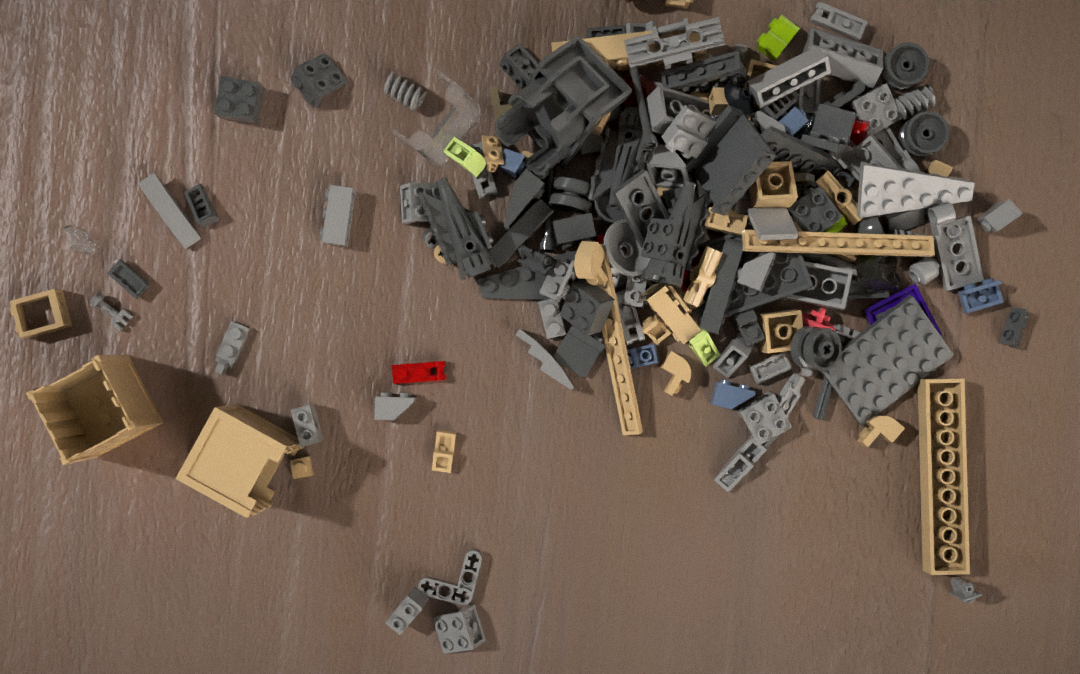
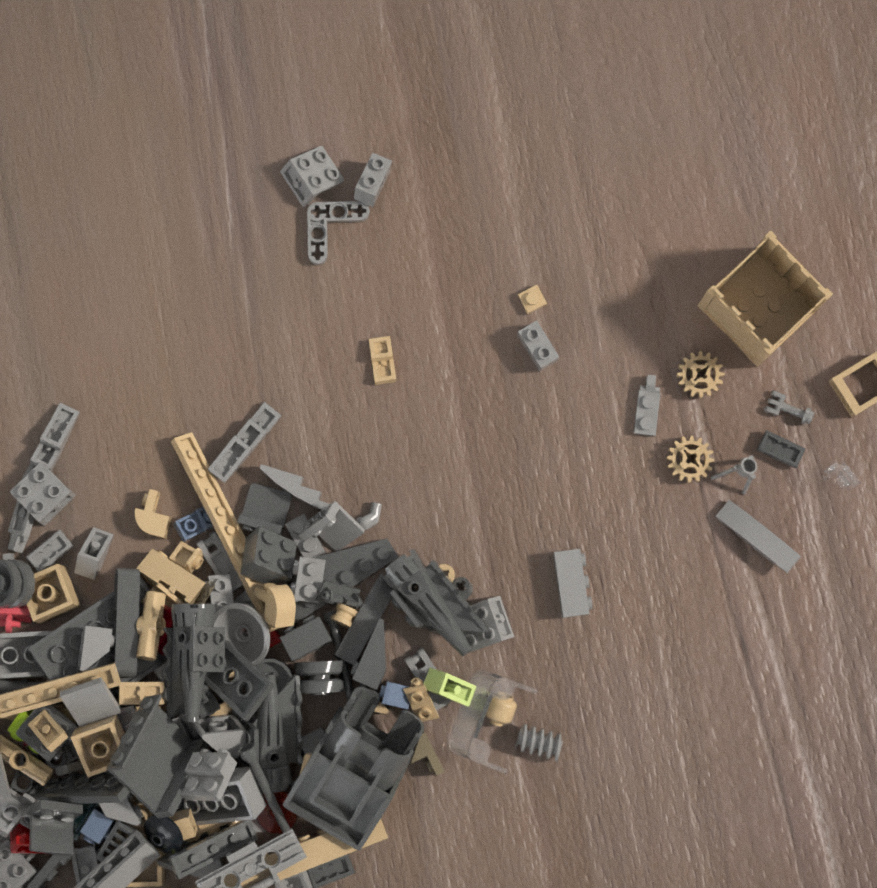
camera: 160 degrees right, 5 degrees down
(158, 268) = (744, 468): none -> light grey plant
(171, 354) = (693, 368): none -> tan gear
(203, 285) = (683, 451): none -> tan gear
(207, 216) = (726, 540): dark grey slope -> none
(237, 459) = (596, 289): tan container -> none
(239, 100) = (718, 680): dark grey brick -> none
(317, 79) = (639, 729): dark grey bracket -> none
(391, 407) = (452, 391): light grey slope -> none
(418, 372) = (434, 437): red plate -> none
(427, 124) = (501, 711): none -> tan head
(493, 317) = (372, 518): none -> light grey arm
(519, 65) = (416, 808): dark grey bracket -> none
(524, 319) = (333, 526): none -> light grey bracket
(537, 241) = (343, 615): none -> tan wheel
(580, 413) = (244, 442): none -> light grey slope
(704, 348) = (127, 551): yellowish green slope -> none
(729, 396) = (86, 506): sand blue slope -> none
(747, 325) = (86, 586): dark grey brick -> none
(814, 208) = (48, 730): none -> tan slope

